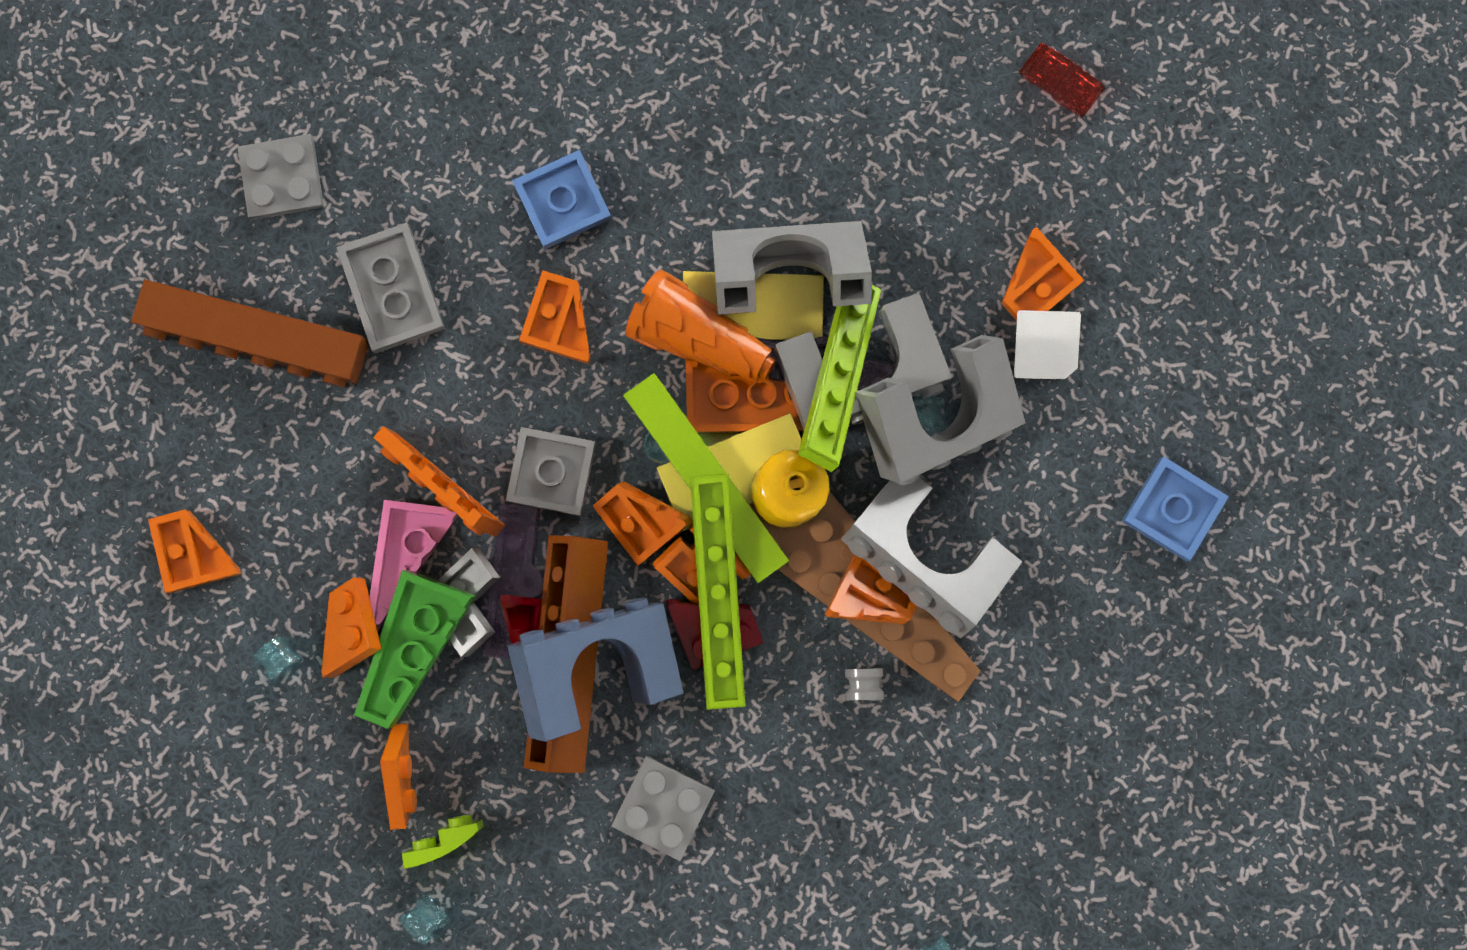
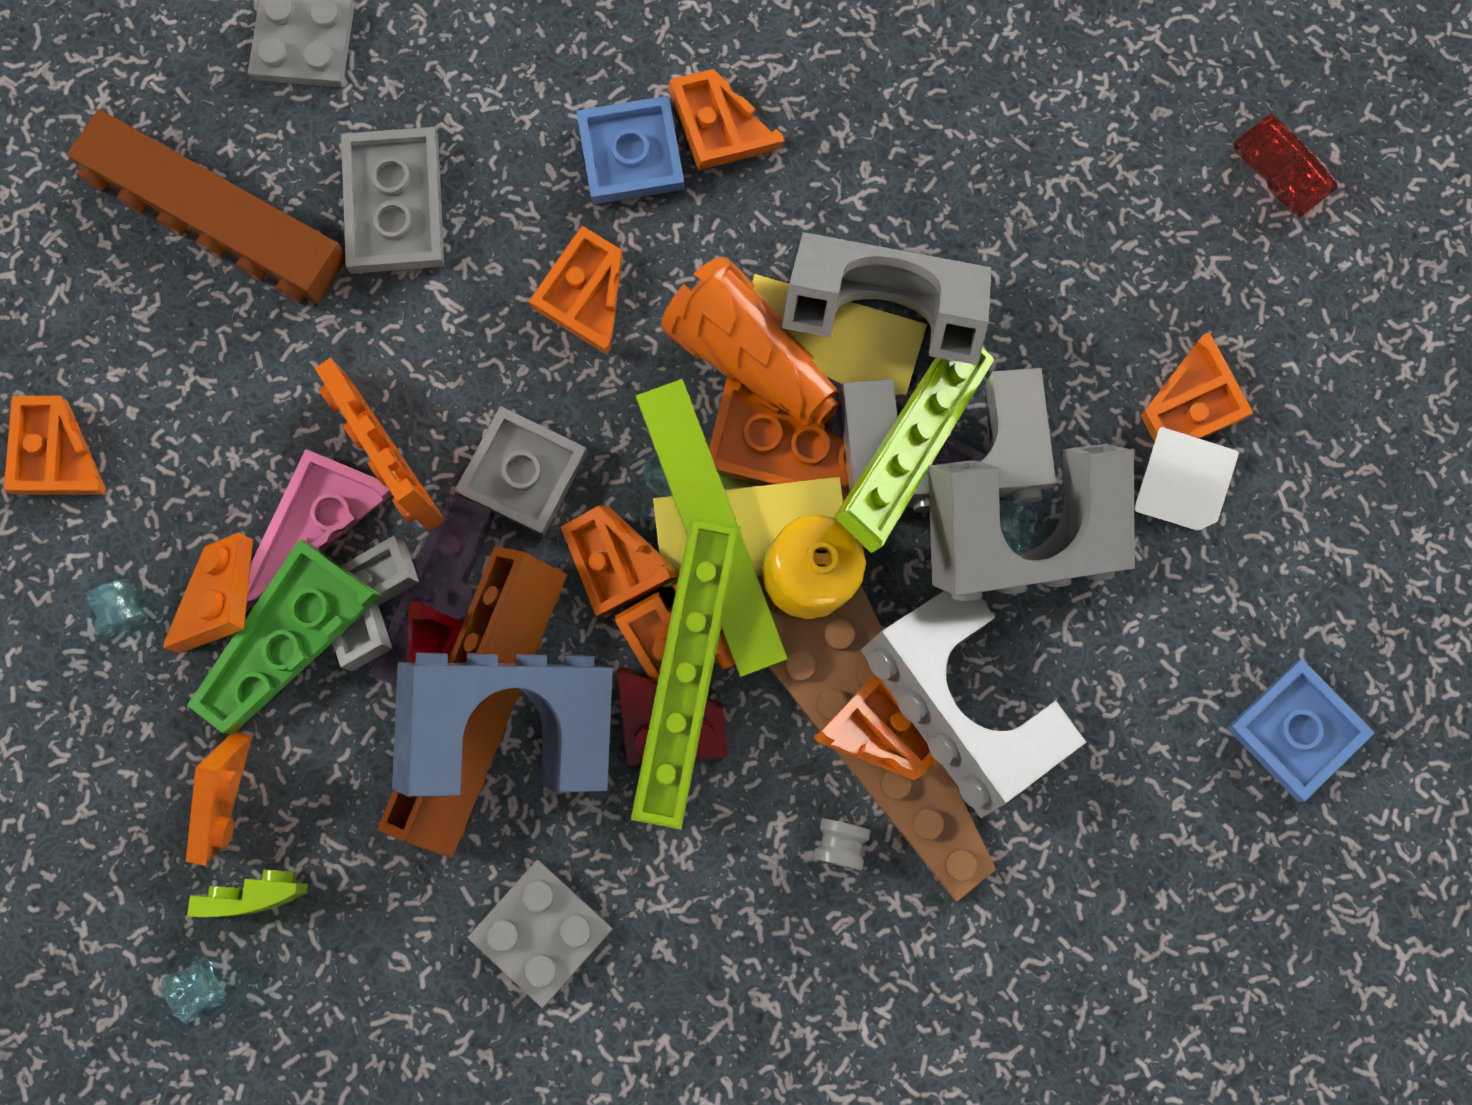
camera: 15 degrees right, 5 degrees down
(623, 158) = (718, 121): none -> orange wing

